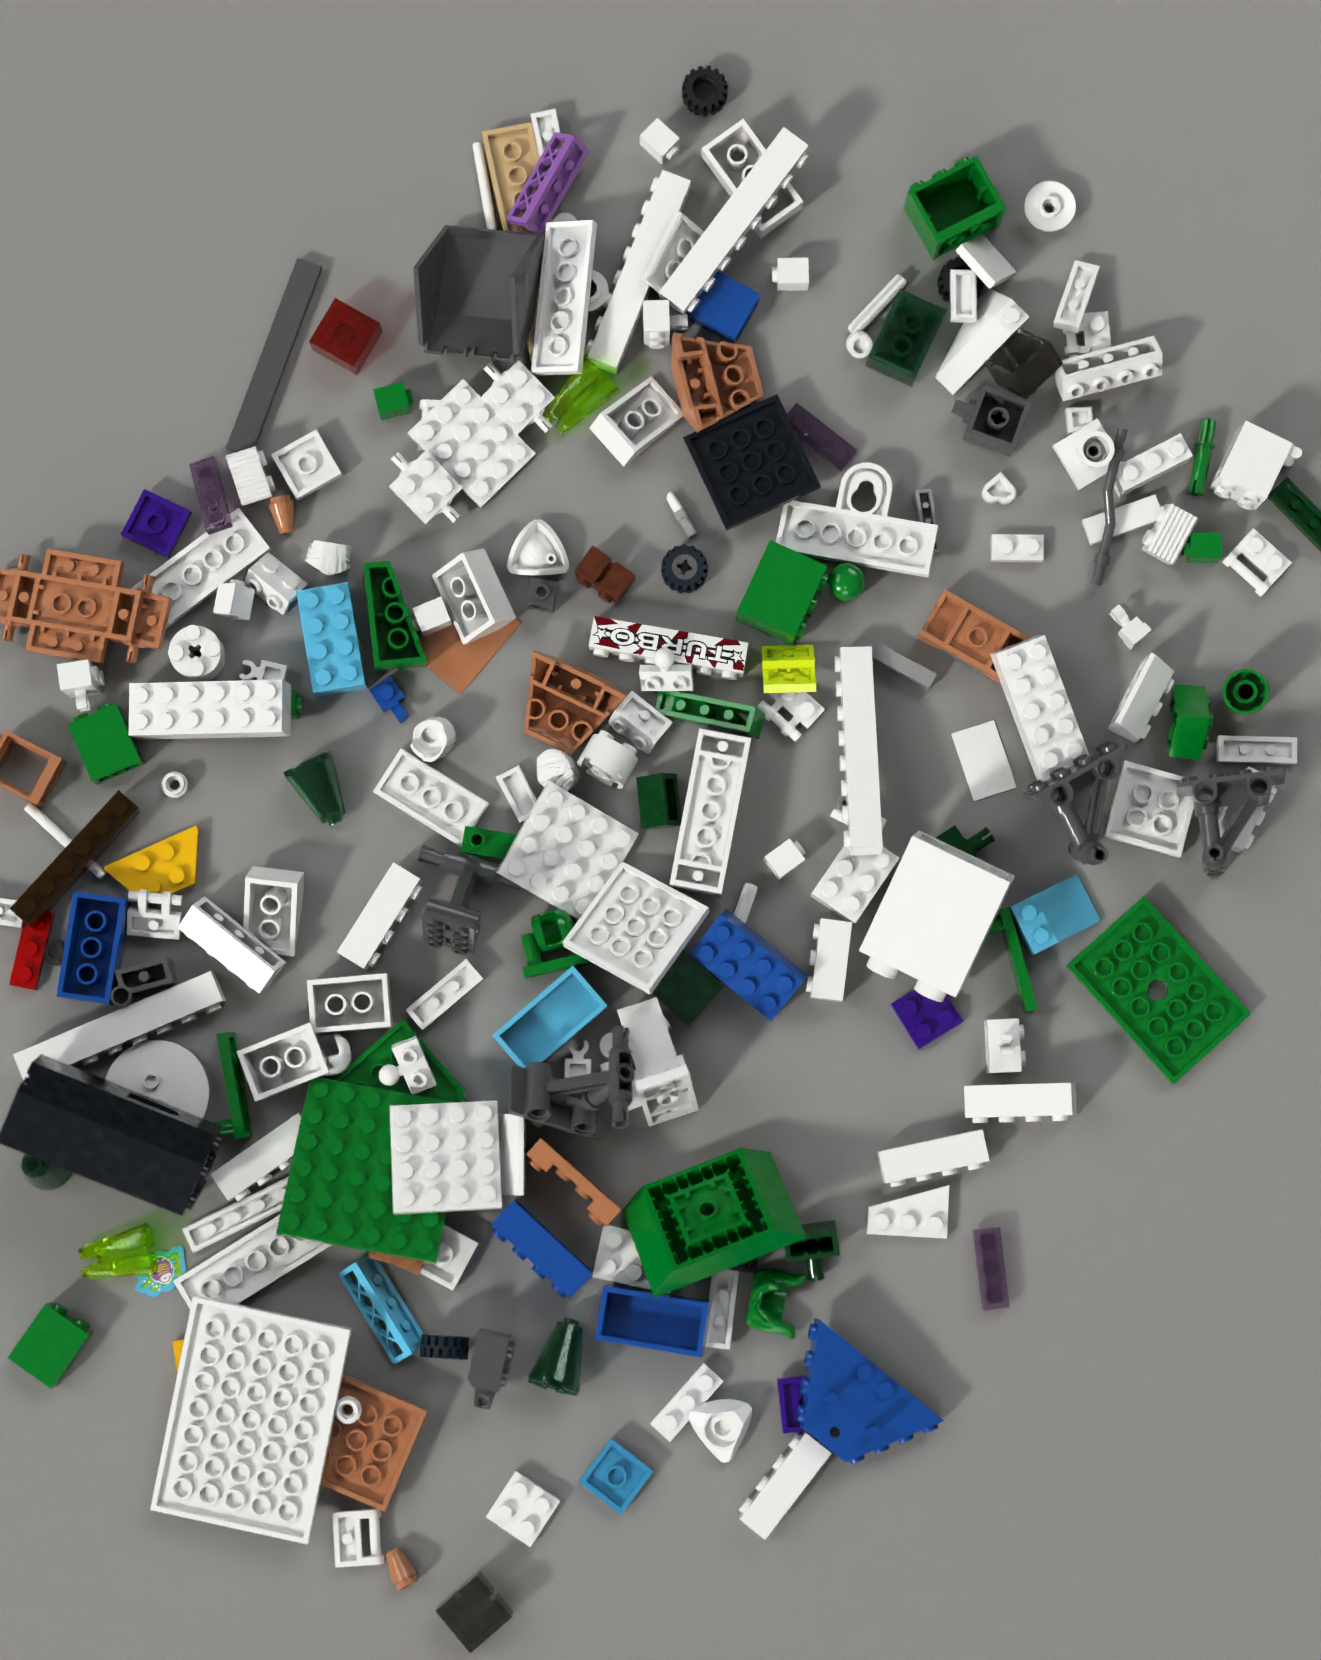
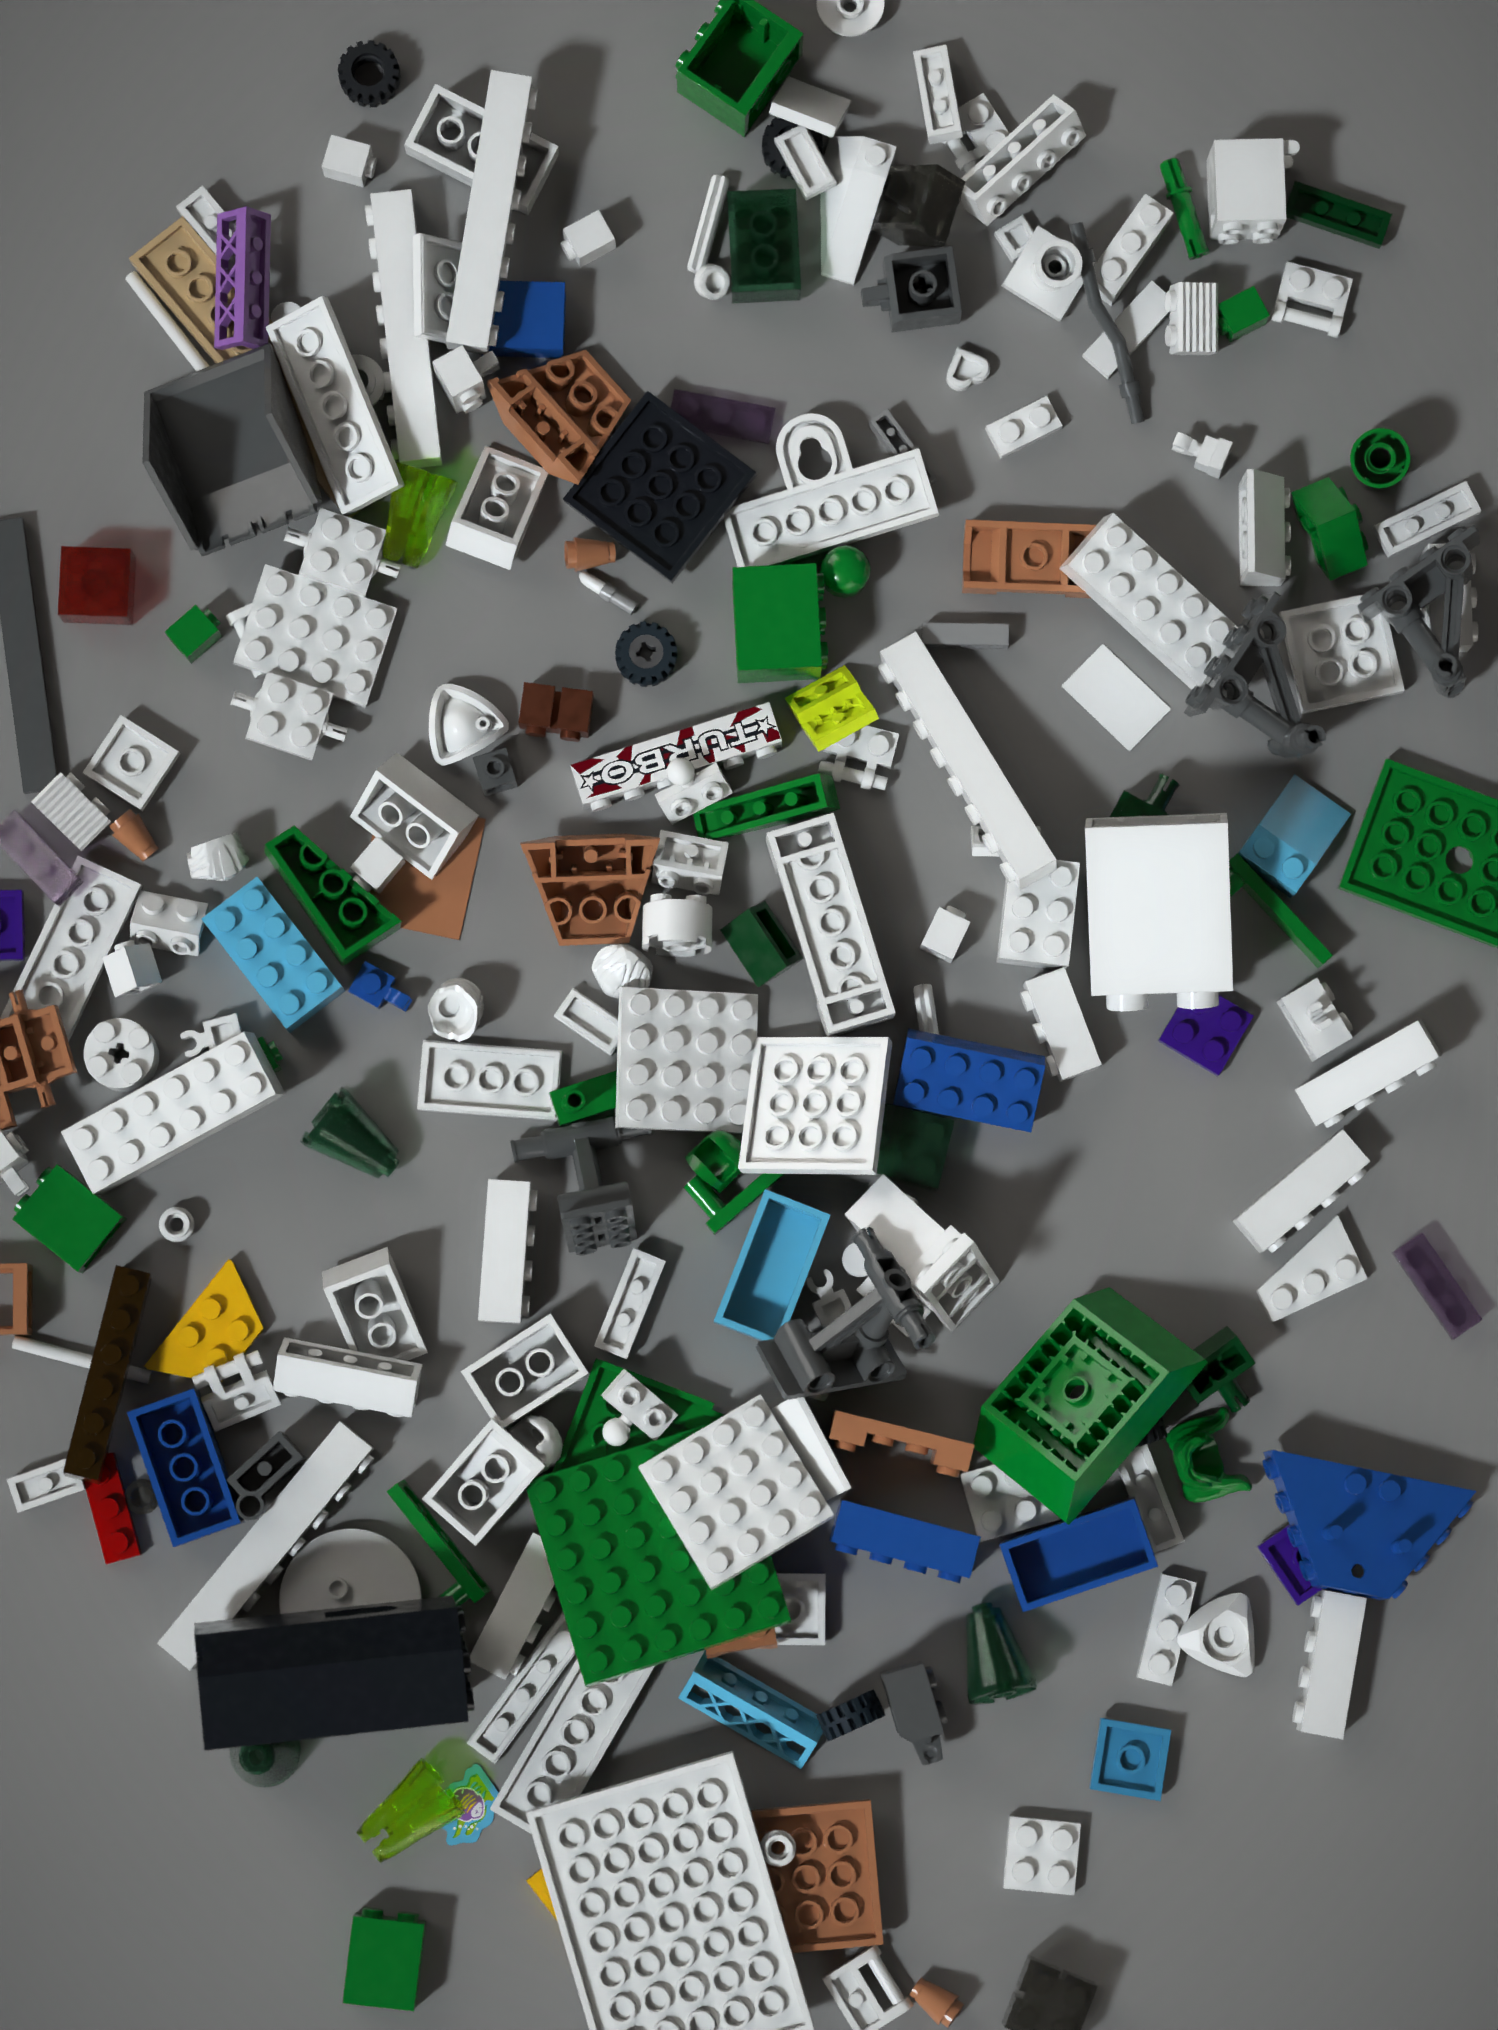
camera: 30 degrees left, 0 degrees up
(681, 482) = (588, 553): none -> nougat cone

